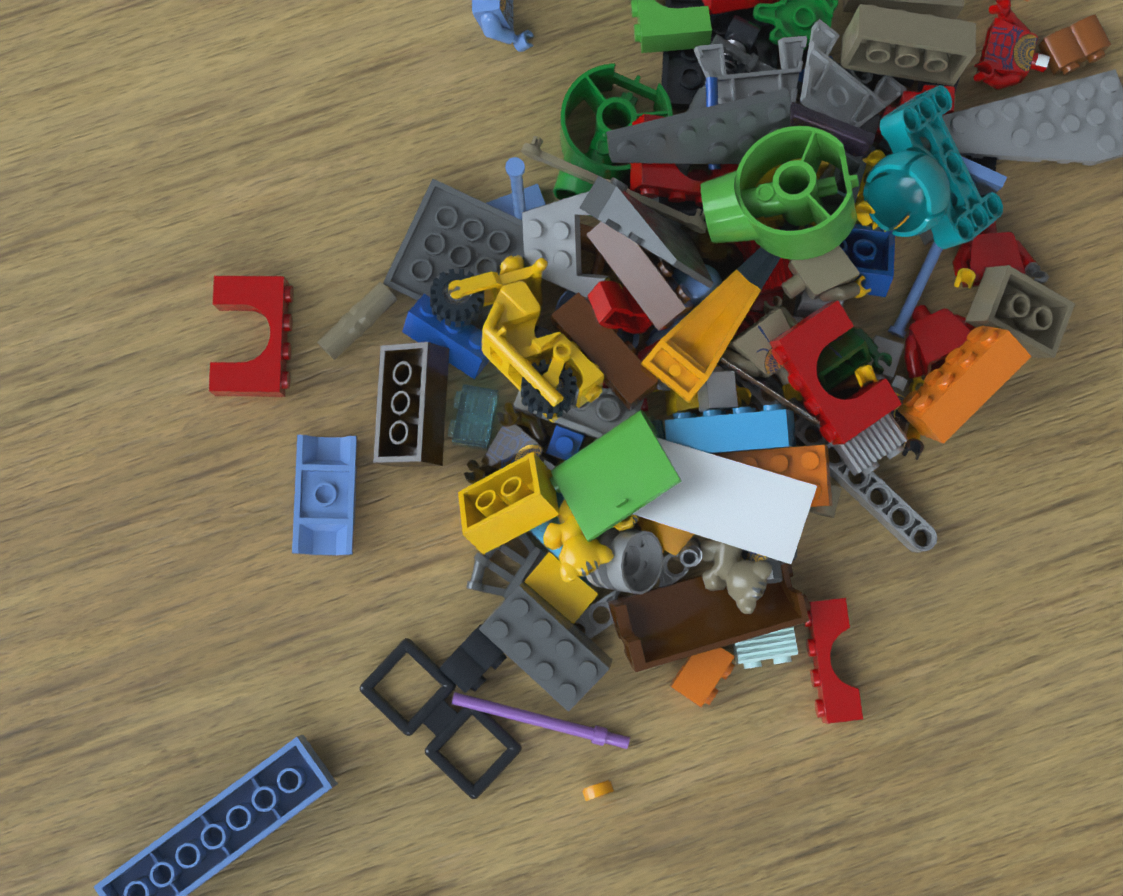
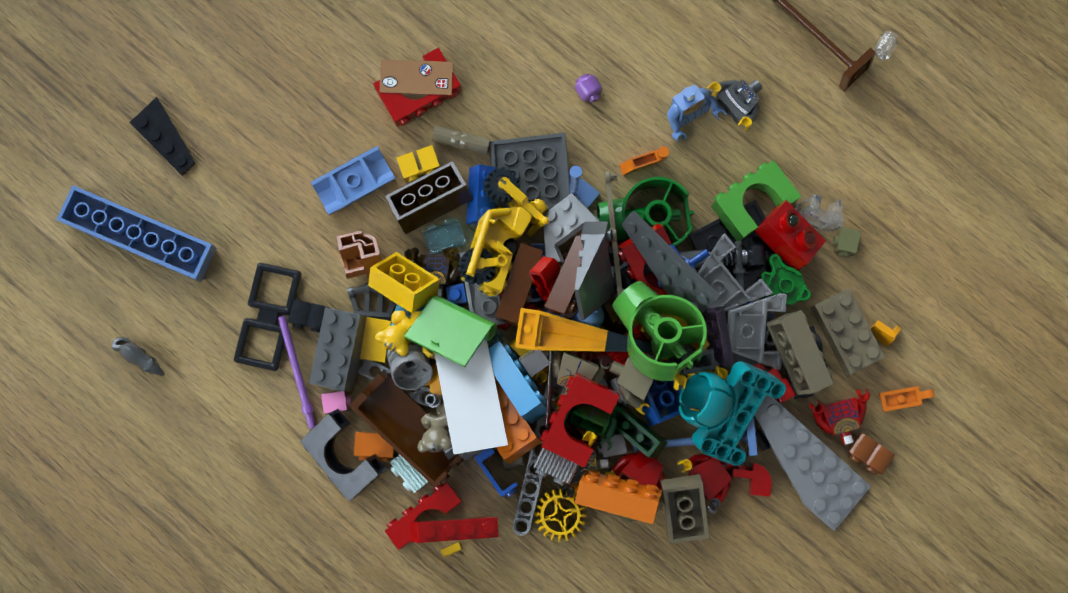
camera: 60 degrees right, 0 degrees up
(91, 722) = (160, 132): none -> black wing
(236, 328) = (416, 77): none -> medium nougat sticker
(353, 409) = (409, 166): none -> yellow piece
(390, 116) = (588, 88): none -> medium lavender head
(431, 542) = (358, 253): none -> dark orange brick
(530, 102) = (644, 161): none -> orange piece
(598, 790) = (276, 425): light orange tile -> none
(613, 690) = (336, 400): none -> bright pink brick
(729, 734) = (320, 445): none -> arch
(866, 526) = (481, 458): none -> blue panel
(891, 312) = (638, 432): none -> dark green brick
(895, 602) = (454, 529): none -> red arch
(899, 648) = (451, 549): none -> yellow tile
(958, 482) = (543, 519): none -> yellow gear
(1029, 200) = (758, 478): none -> red brick

